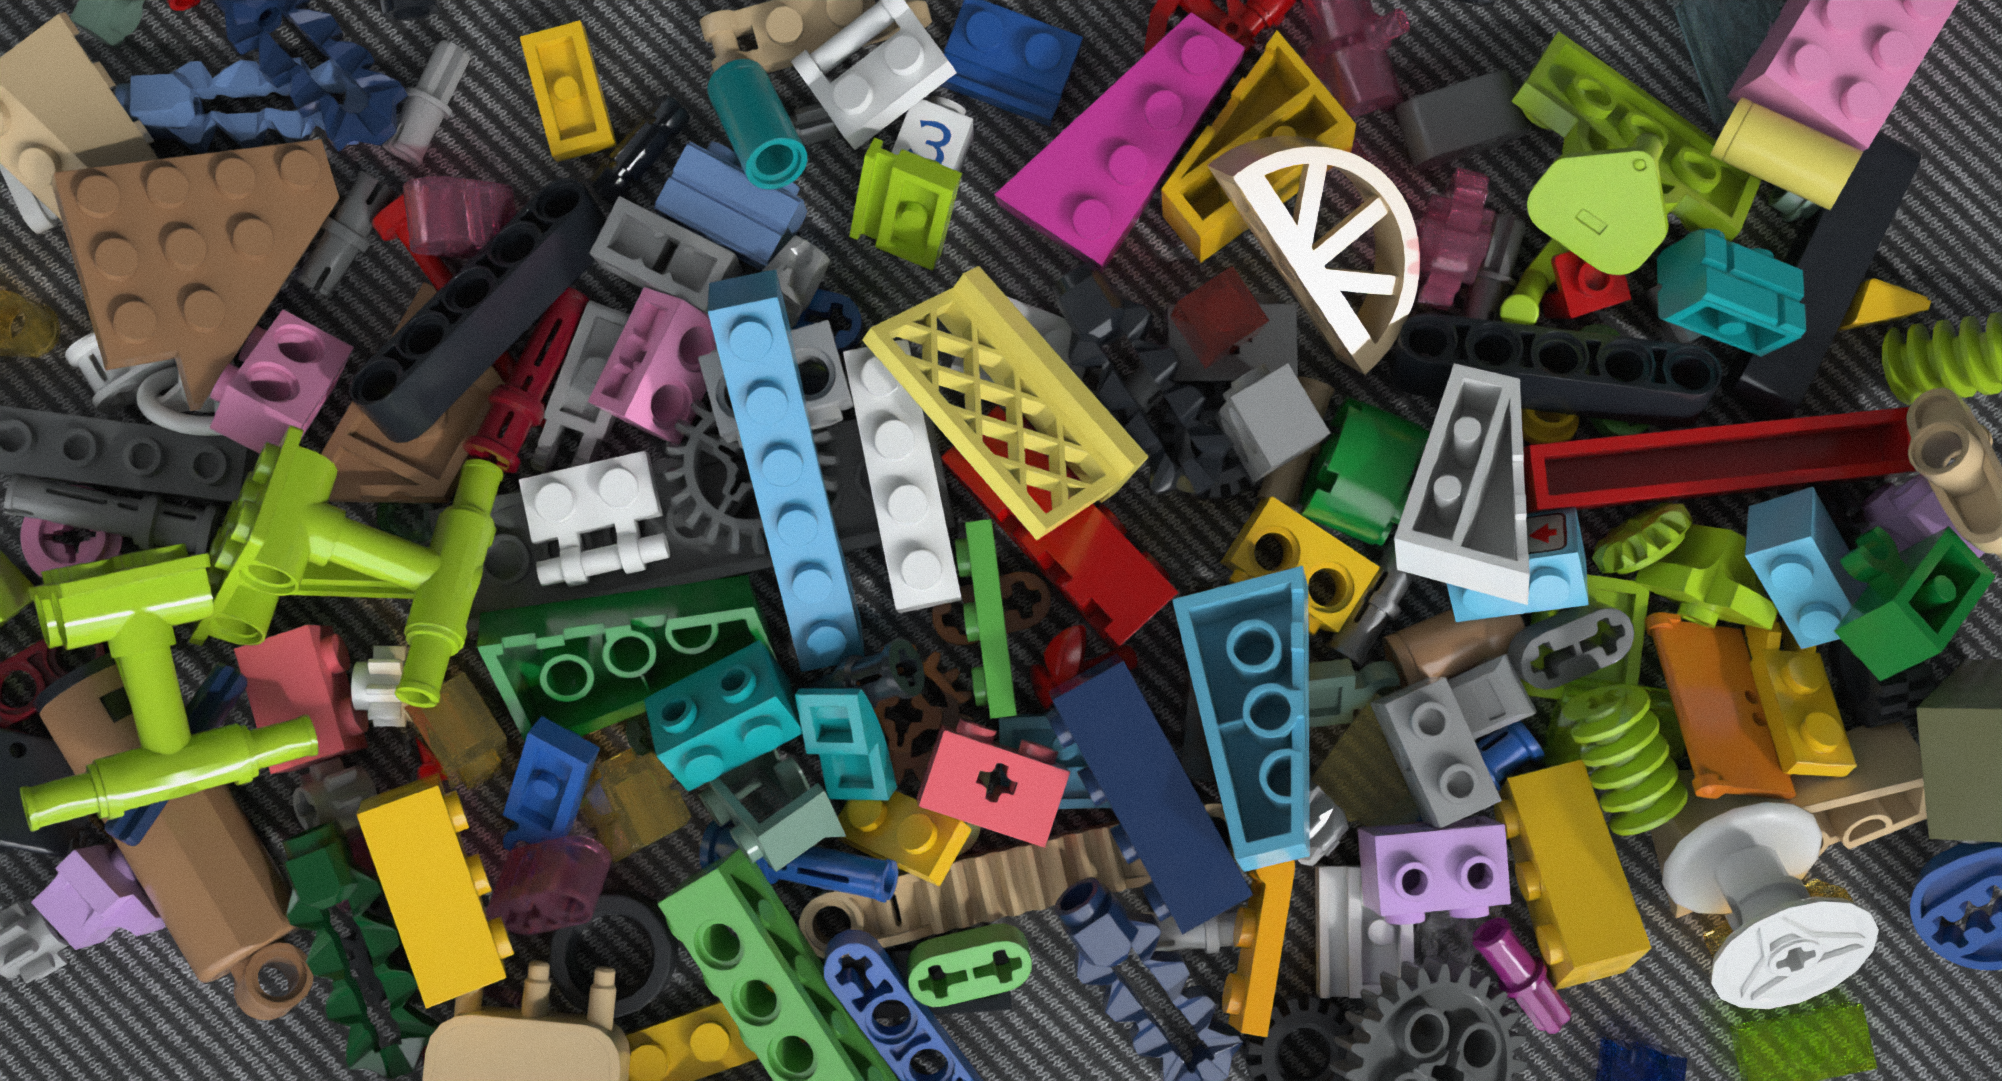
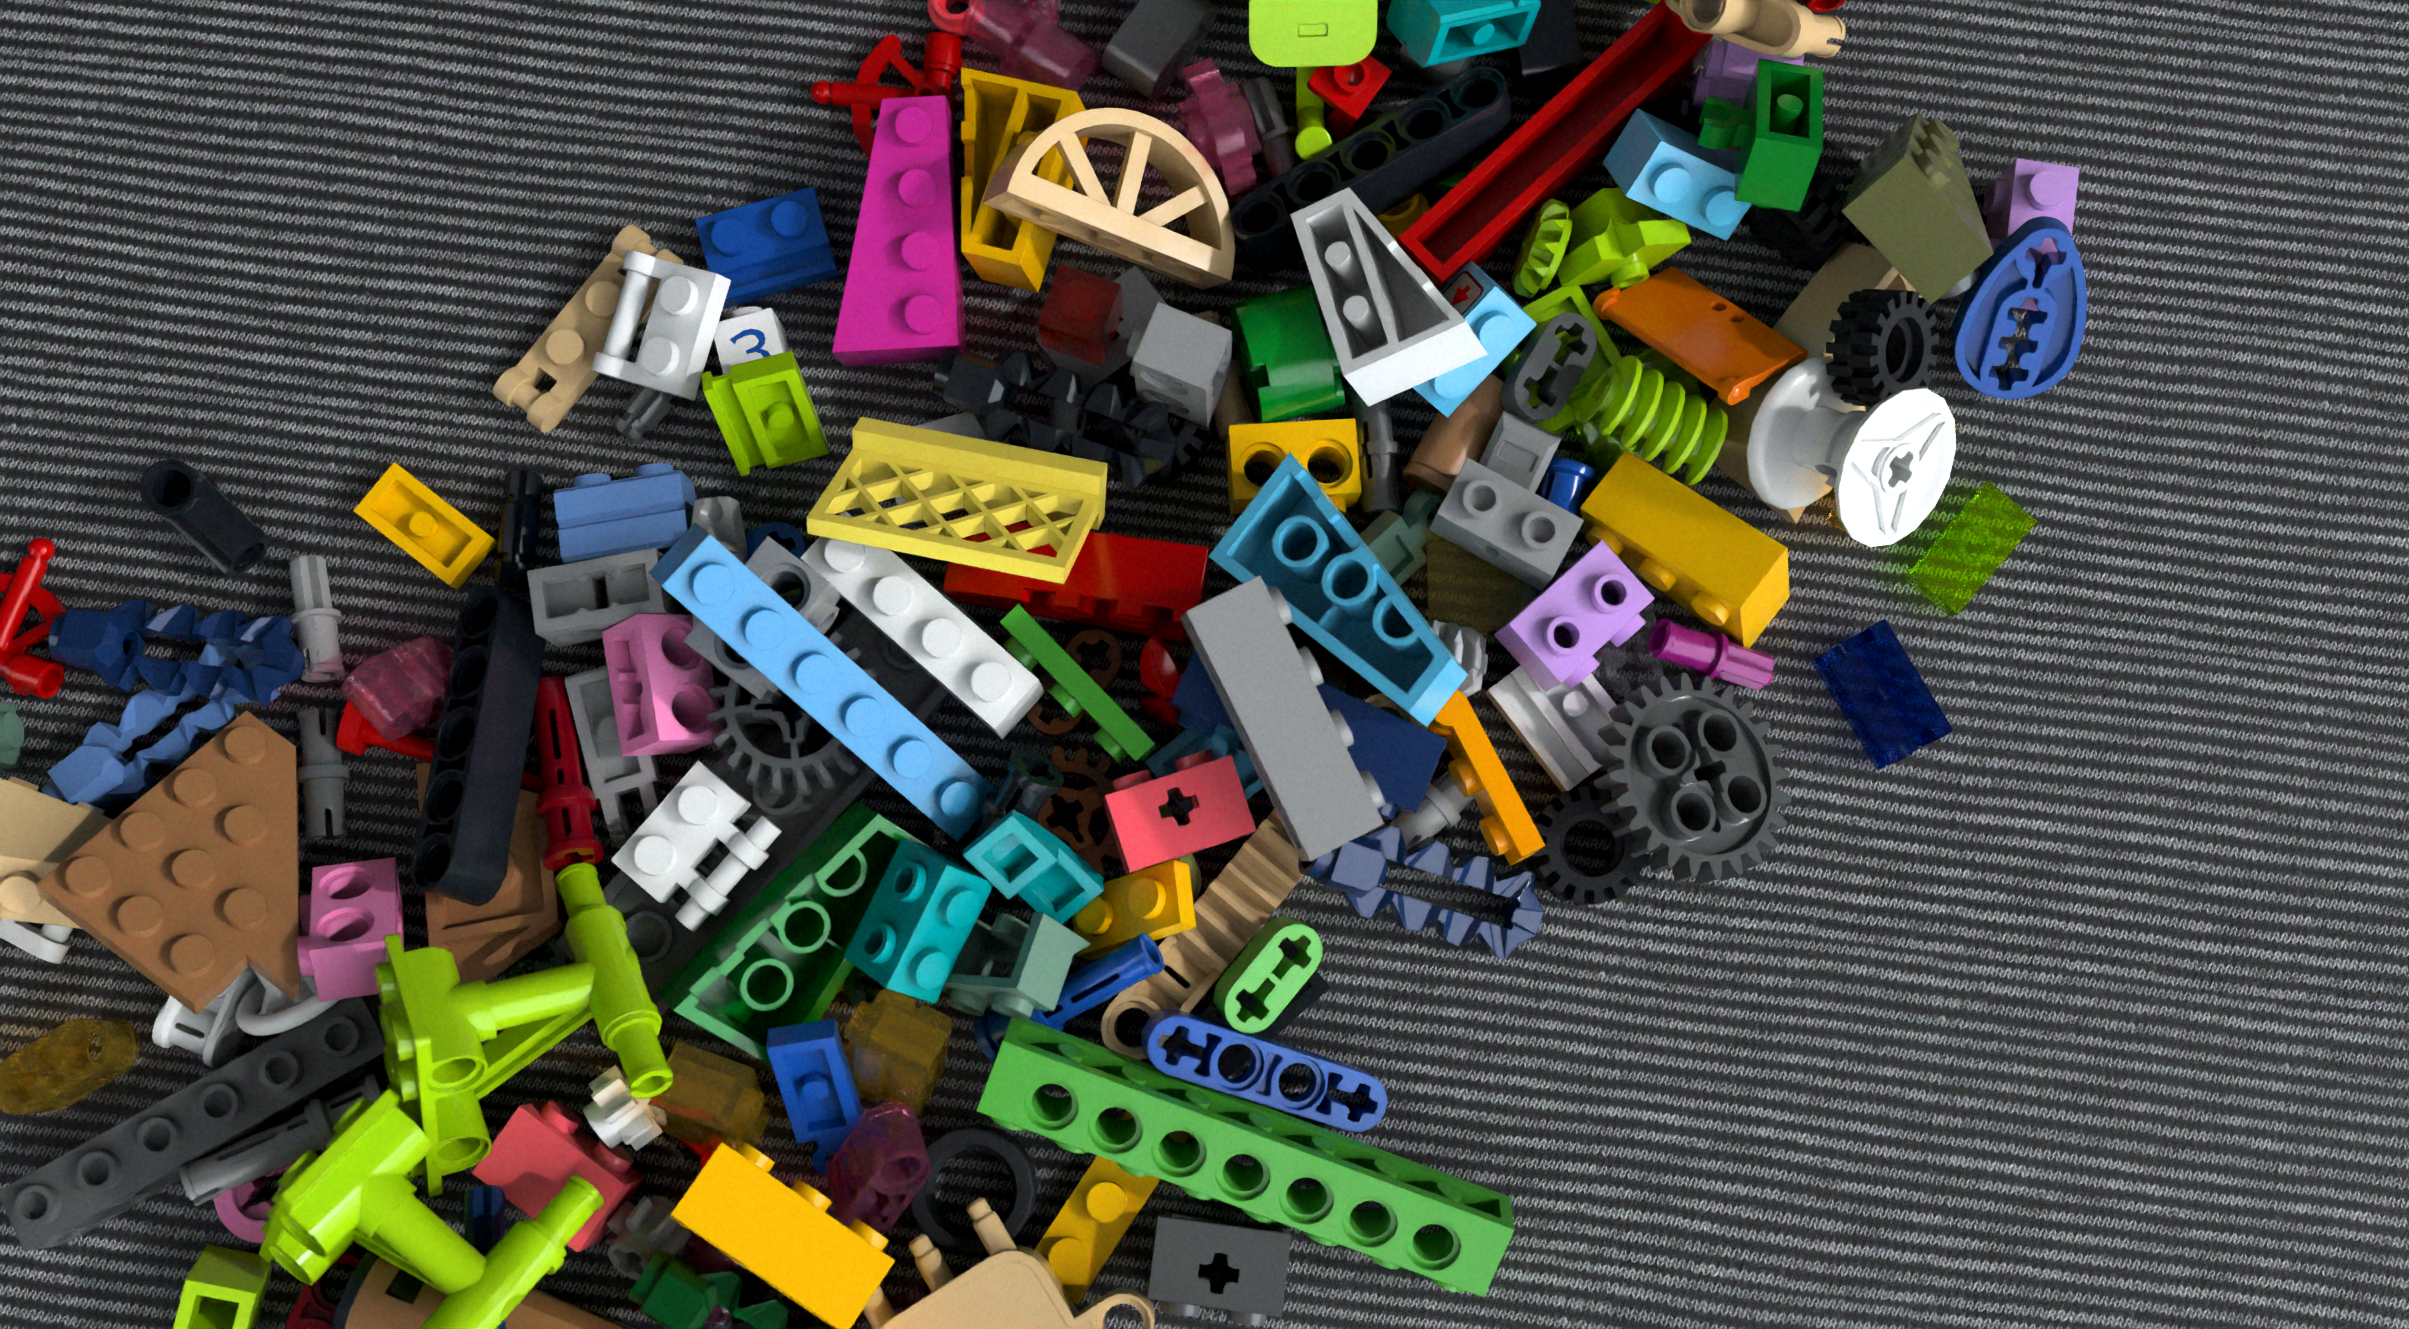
camera: 30 degrees left, 5 degrees down
(757, 124) = (599, 437): teal pin -> none
(1131, 785) = (1282, 718): none -> light grey brick
(1798, 704) = (1756, 283): yellow hinge -> none
(1860, 840) = (1881, 345): none -> black tyre

